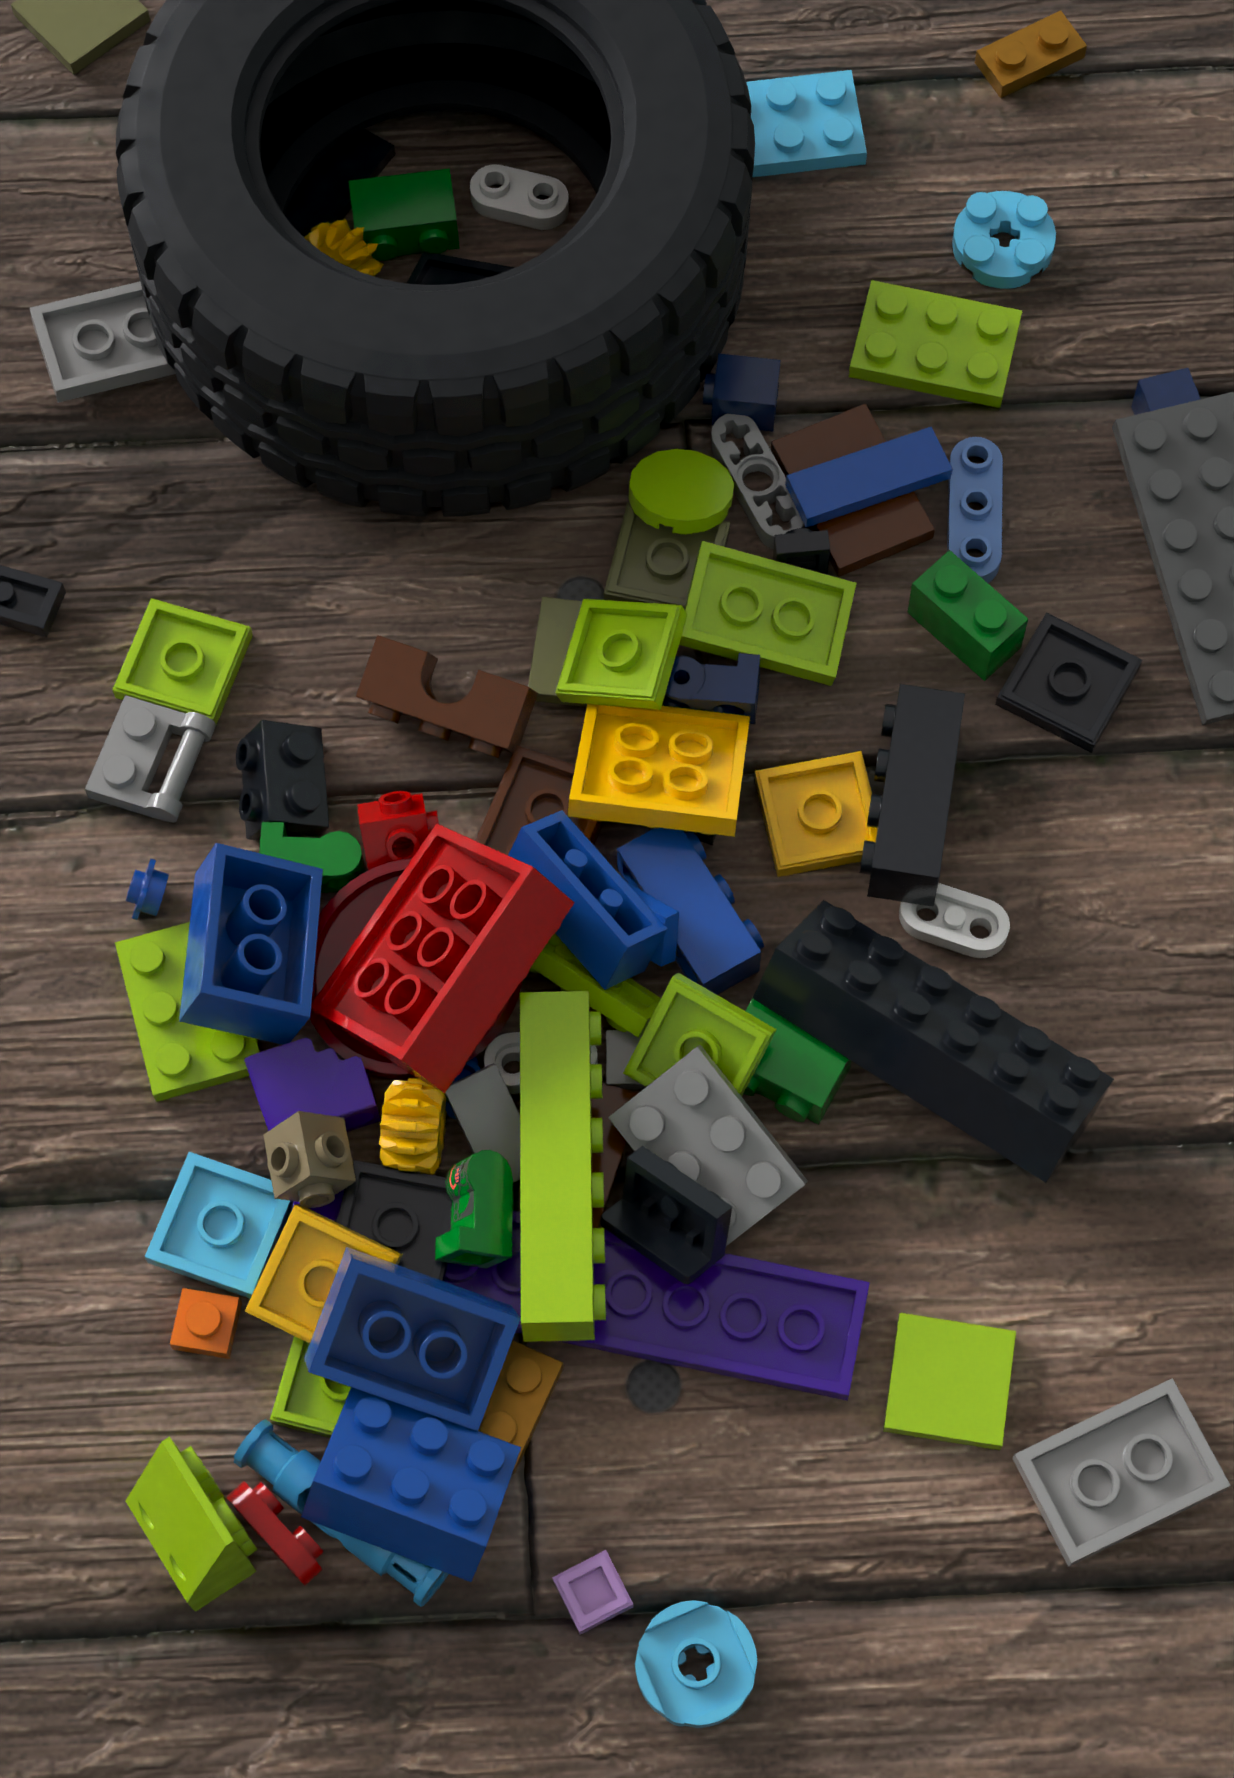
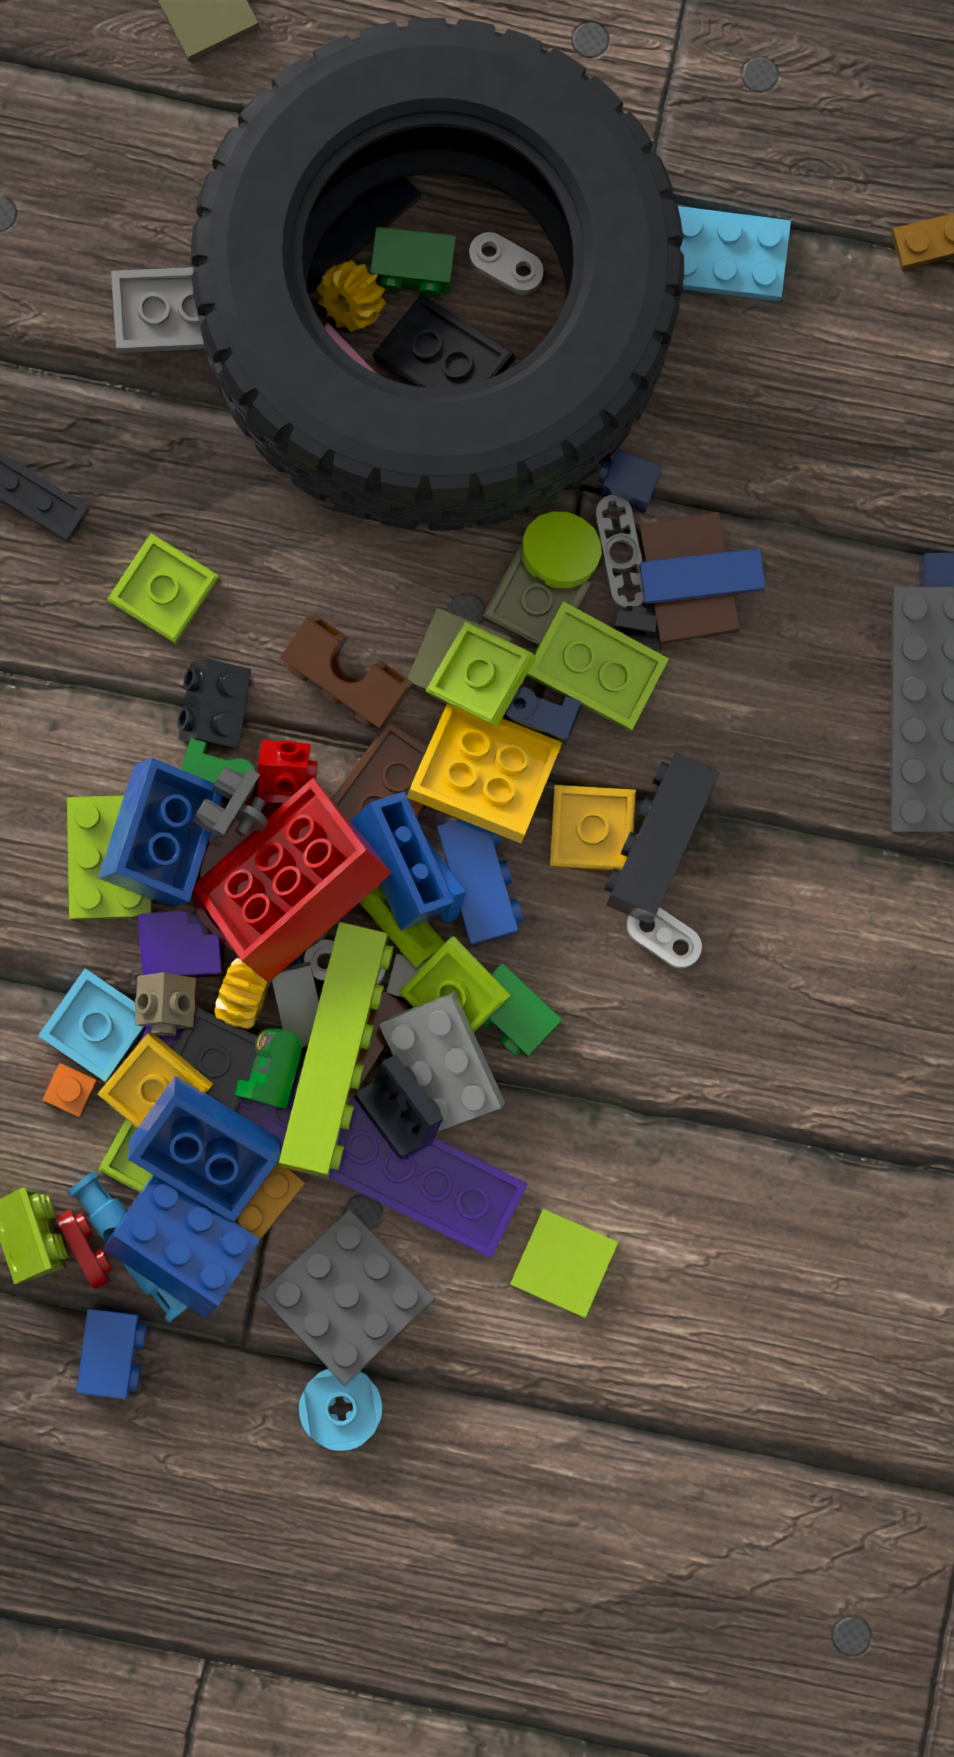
camera: 10 degrees right, 15 degrees up
(134, 754) = (111, 654): light grey plate -> none
(147, 890) = (98, 764): blue plate -> none
(347, 884) = (220, 820): none -> dark grey hips
(348, 1671) = (110, 1354): none -> blue brick
(592, 1592) = (282, 1344): lavender tile -> none
(663, 1504) = (347, 1297): none -> dark grey plate
(933, 1039) = (619, 1026): black brick -> none
(935, 344) = (786, 472): lime plate -> none
(967, 615) = (741, 706): green brick -> none
(979, 484) = (767, 634): medium blue plate -> none
(1008, 213) = (876, 417): medium azure plate -> none
(1068, 682) = (802, 773): black tile -> none
(1120, 1472) = (659, 1356): light grey plate -> none

